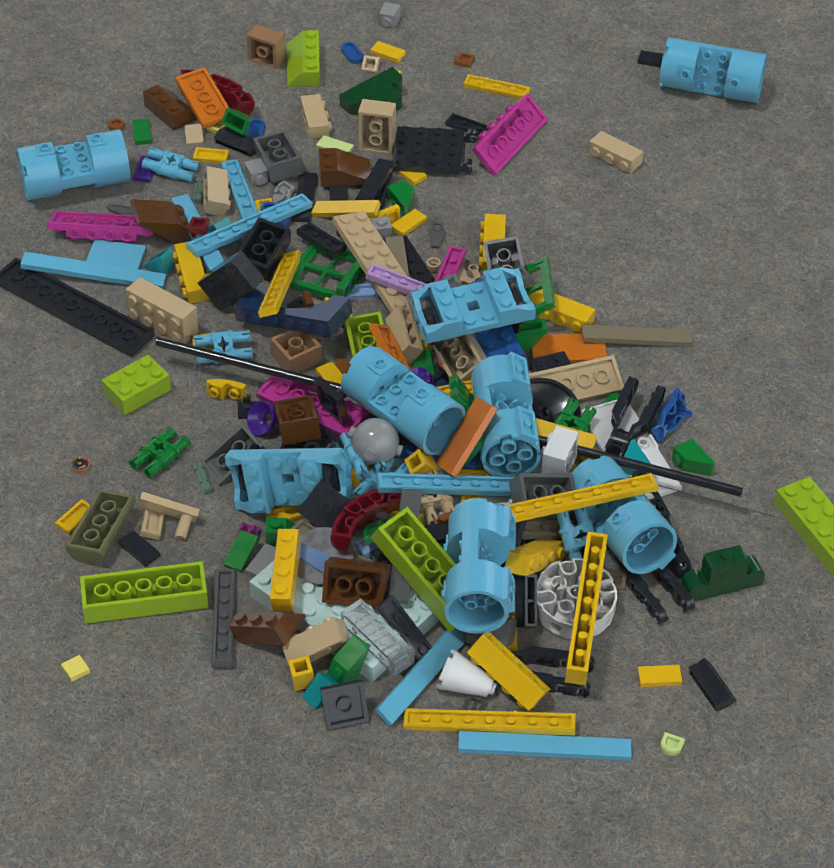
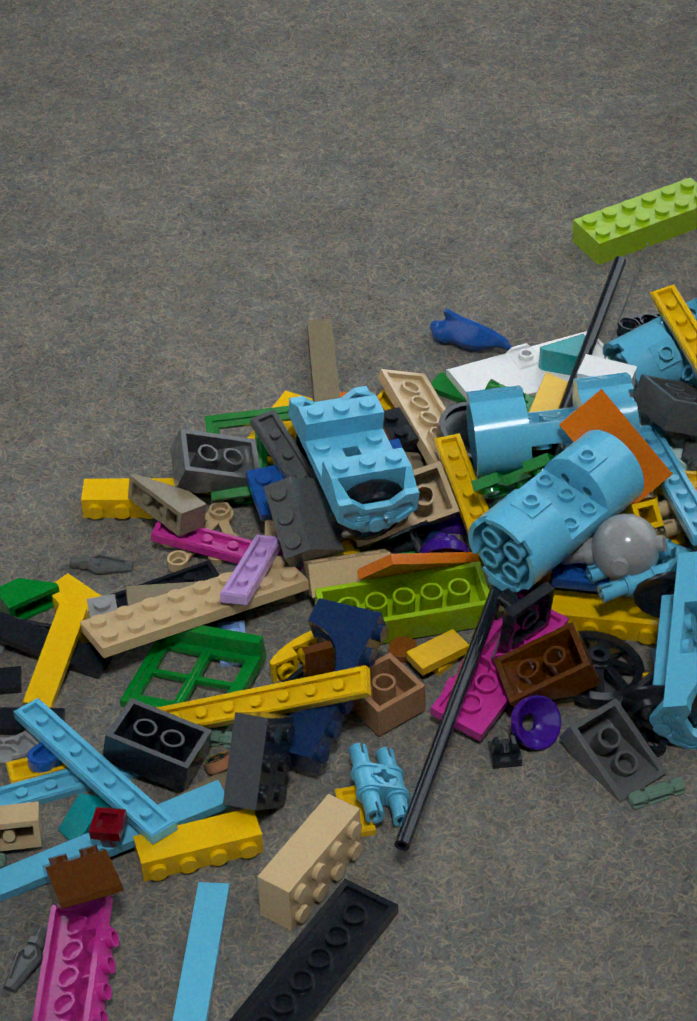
camera: 90 degrees left, 5 degrees down
(80, 465) = (655, 950): tile -> none
(117, 254) = (148, 962): medium azure tile -> none
(136, 384) = (476, 887): lime brick -> none
(159, 452) = (616, 846): green pin -> none
(161, 262) = (173, 889): teal slope -> none
(221, 388) = (472, 775): yellow slope -> none
(321, 239) = (128, 681): black plate -> none
(463, 250) = (168, 504): none -> dark tan slope
(620, 439) = (501, 361): black piece -> none
(692, 458) = (541, 318): green slope -> none

